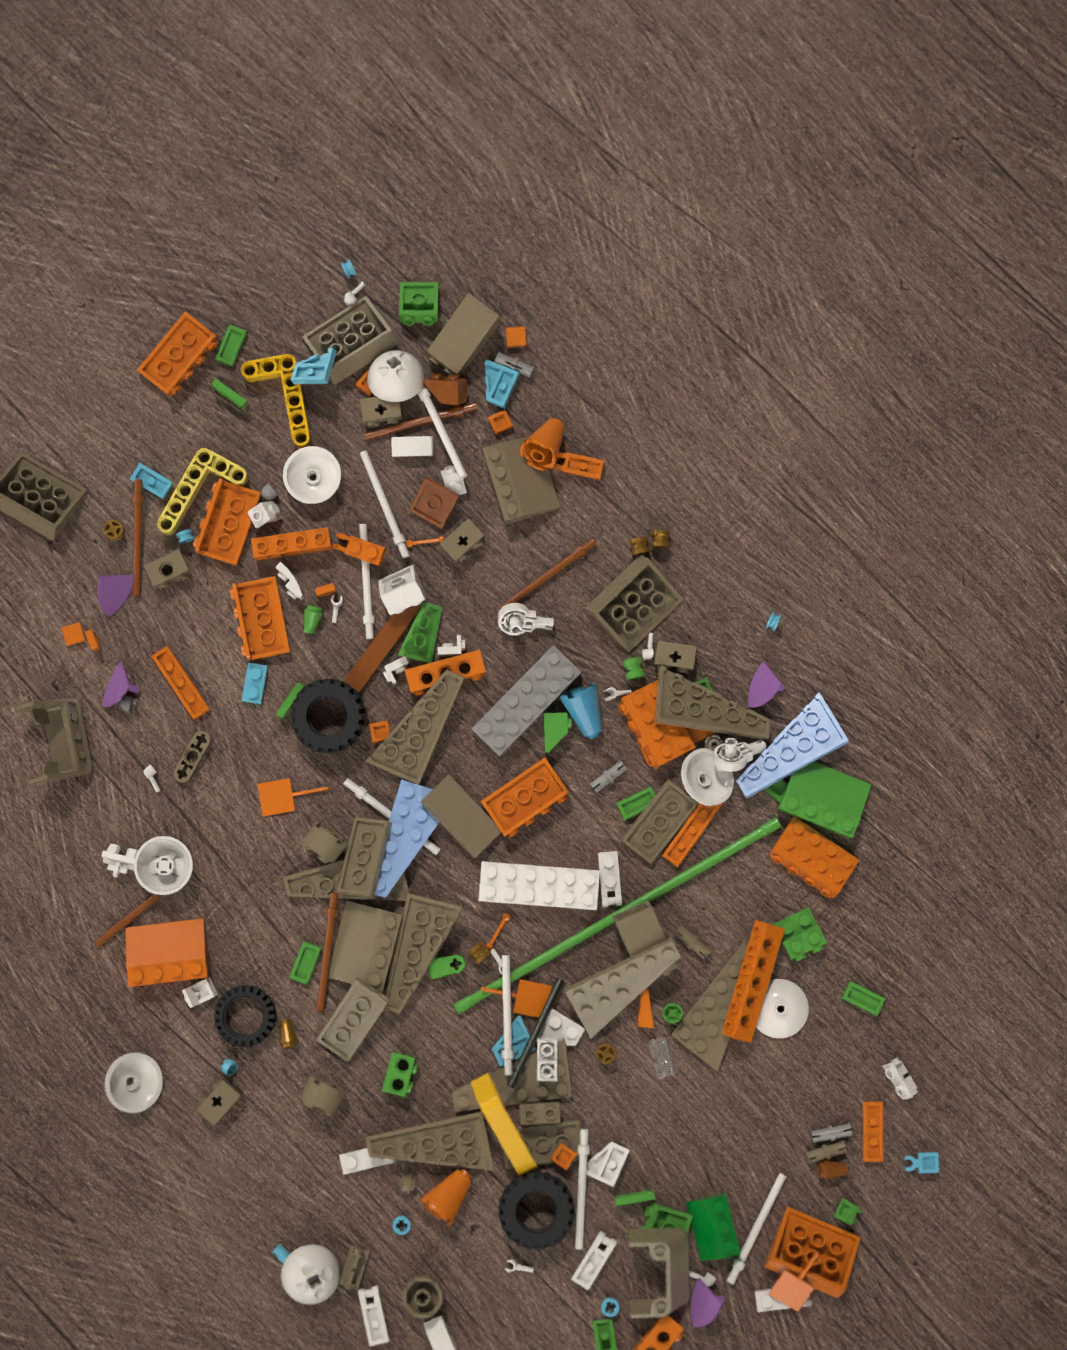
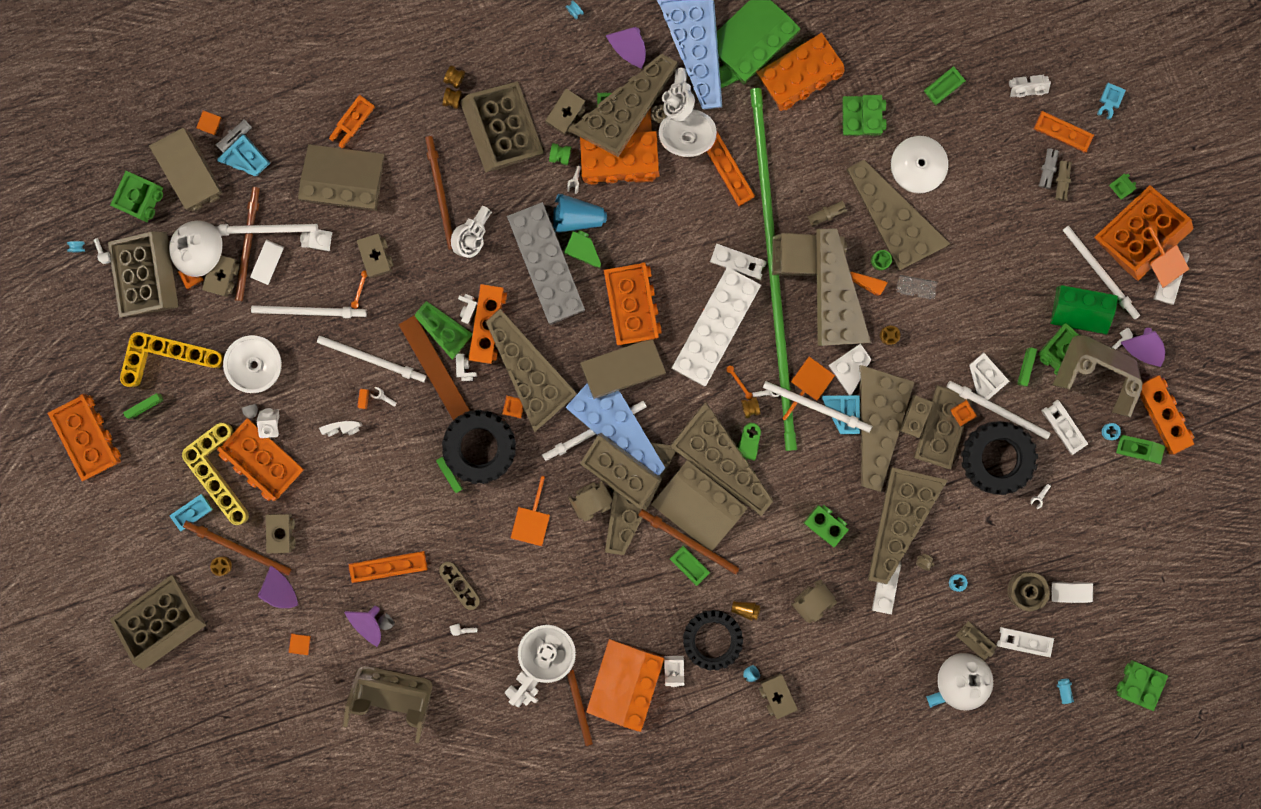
camera: 65 degrees left, 5 degrees up
(93, 640) = (314, 628): orange tile -> none
(144, 1085) = (735, 757): white dish -> none
(185, 536) = (256, 503): medium azure bush -> none
(231, 345) = (98, 385): bright green tile -> none
(254, 683) = (418, 500): medium azure plate -> none
(260, 618) = (362, 469): orange bracket -> none
(291, 544) = (307, 410): orange brick -> none
(312, 617) = (383, 422): bright green cone -> none
(315, 369) = (156, 318): medium azure wing -> none
(353, 1019) = (759, 545): dark tan tile -> none
(361, 549) = (341, 349): orange hinge -> none
(401, 590) = (394, 330): white slope -> none
(434, 502) = (328, 265): dark orange plate -> none
(447, 389) = (229, 206): dark orange slope -> none
(448, 1196) = (952, 530): orange cone -> none
(500, 422) = (281, 172): orange tile -> none
(502, 1124) = (912, 453): yellow beam -> none
(519, 1067) = (869, 416): pearl dark grey bar -> none
(543, 445) = (320, 142): orange cone -> none
(546, 1059) = (872, 388): white slope -> none
(608, 776) = (646, 221): light grey pin -> none
(635, 804) = (682, 206): bright green tile -> none
(648, 653) = (552, 134): white hand -> none
(659, 821) = (707, 194): dark tan tile -> none
(753, 981) = (886, 175): orange brick -> none
(830, 1169) = (1080, 184): dark orange cone -> none

